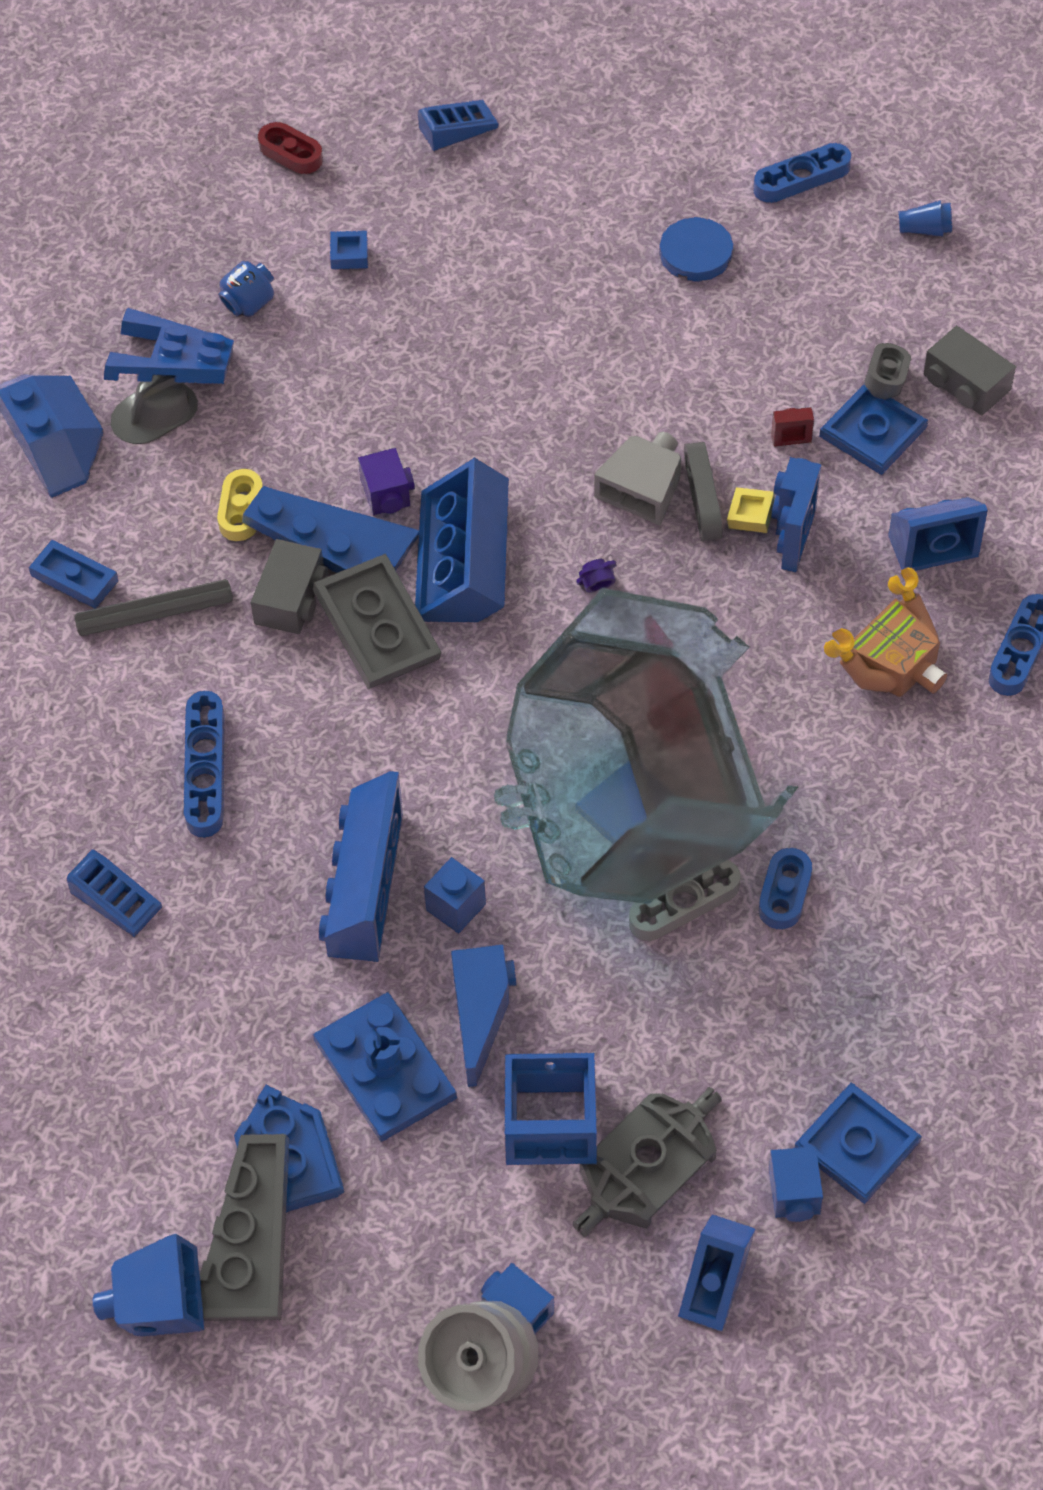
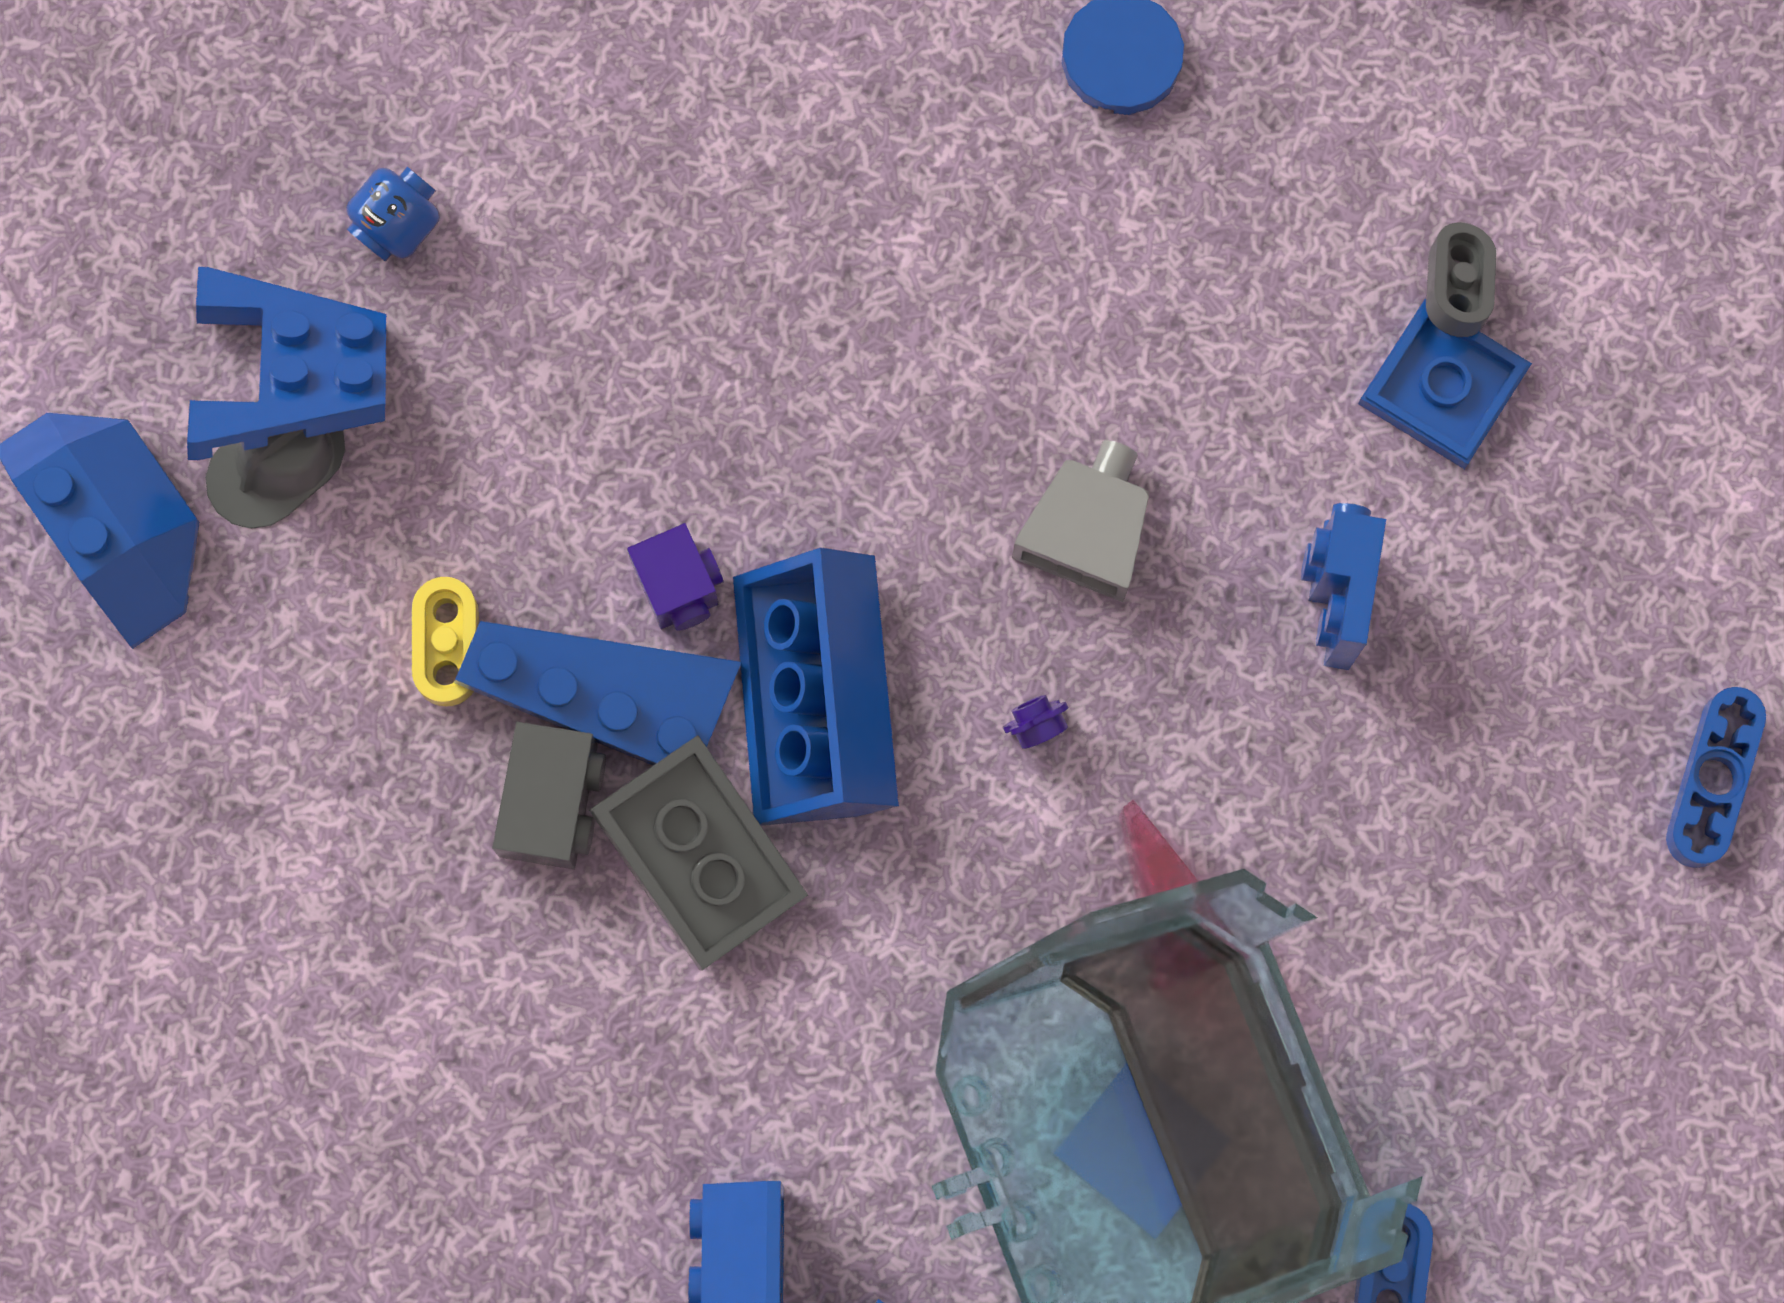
camera: 10 degrees left, 20 degrees up
(73, 574) = (194, 803): blue plate -> none
(153, 607) = (333, 850): dark grey axle -> none
(204, 763) = (449, 1136): blue beam -> none
(349, 249) = (551, 113): blue plate -> none
(703, 491) = (1187, 541): dark grey beam -> none
(751, 510) = (1268, 570): light yellow plate -> none
(792, 426) = (1317, 401): dark red plate -> none
(894, 646) = (1522, 813): nougat torso -> none
(938, 533) = (1569, 588): blue slope -> none
(969, 370) = (1589, 265): dark grey brick -> none

